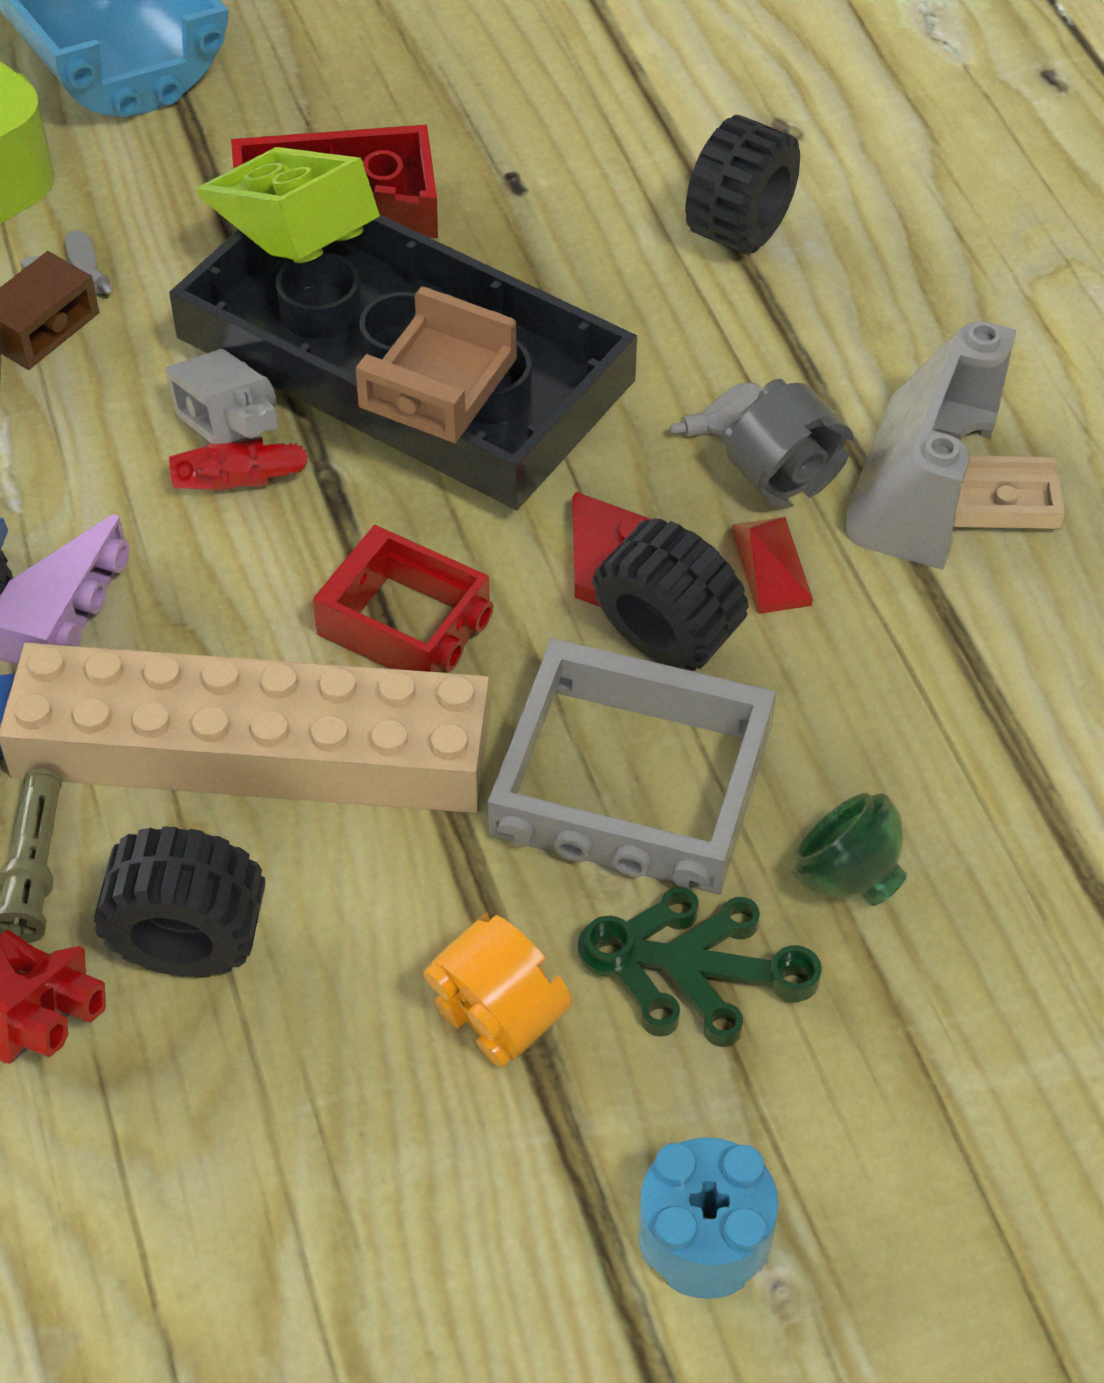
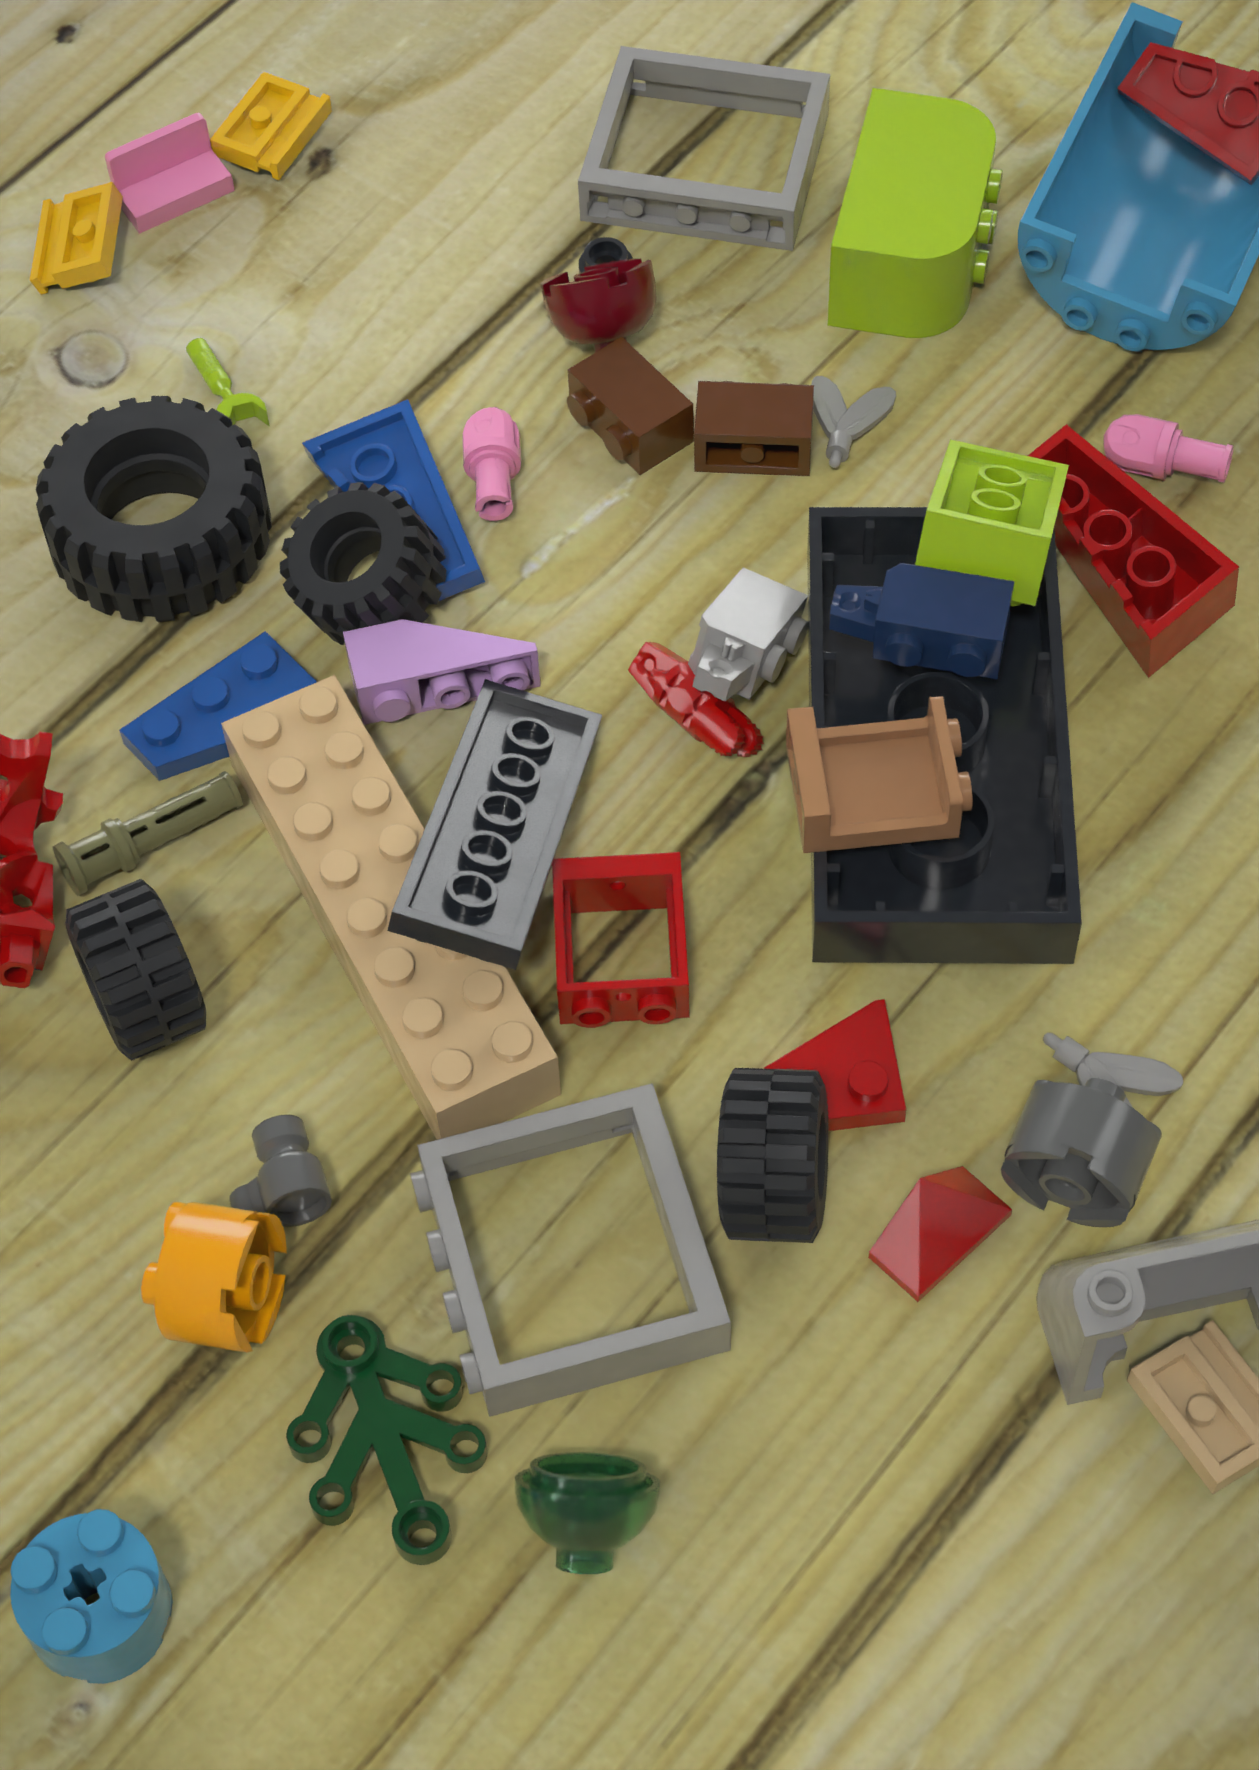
camera: 60 degrees right, 5 degrees up
(263, 608) = (496, 825): none -> plate
(283, 120) = (1158, 449): none -> bright pink arm
(341, 269) = (929, 618): none -> dark blue hinge
(436, 910) = (290, 1179): none -> dark grey piece

